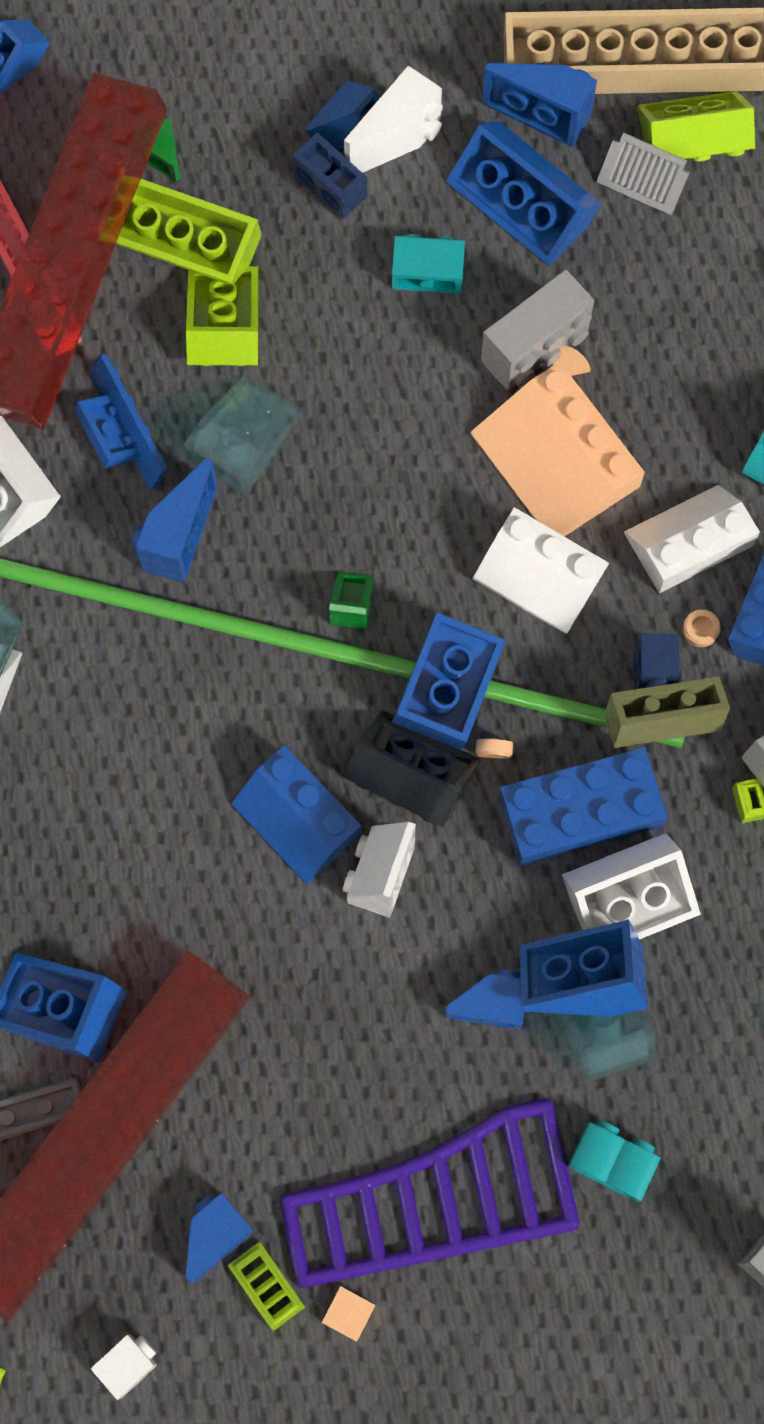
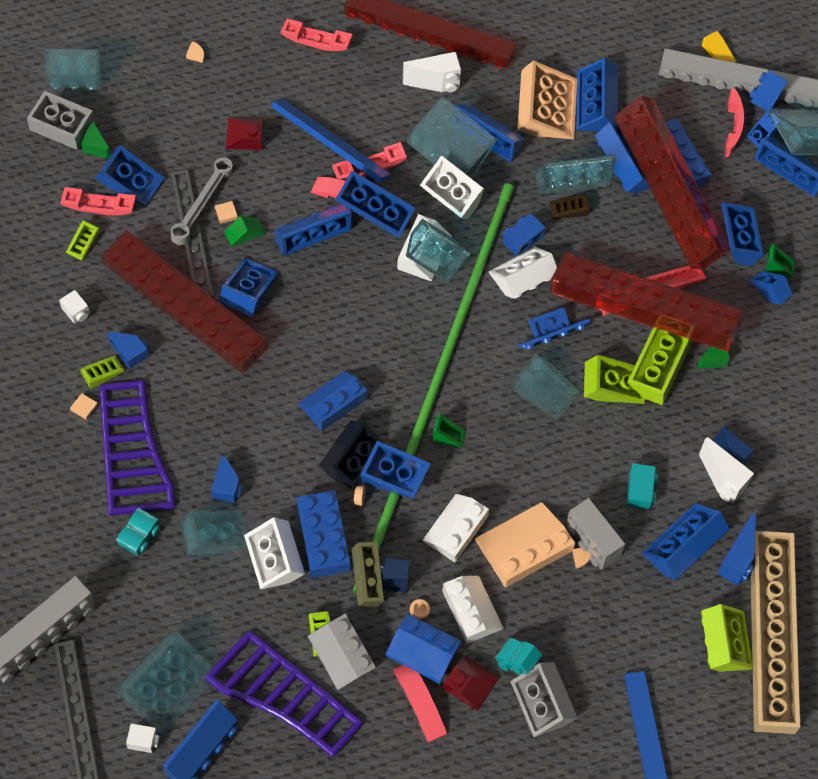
camera: 90 degrees right, 10 degrees down
(176, 524) = (491, 349): blue slope -> none
(330, 175) = (693, 437): dark blue brick -> none
(381, 867) = (297, 434): white slope -> none
(585, 972) = (232, 521): blue slope -> none
(644, 173) = (695, 606): light grey window -> none

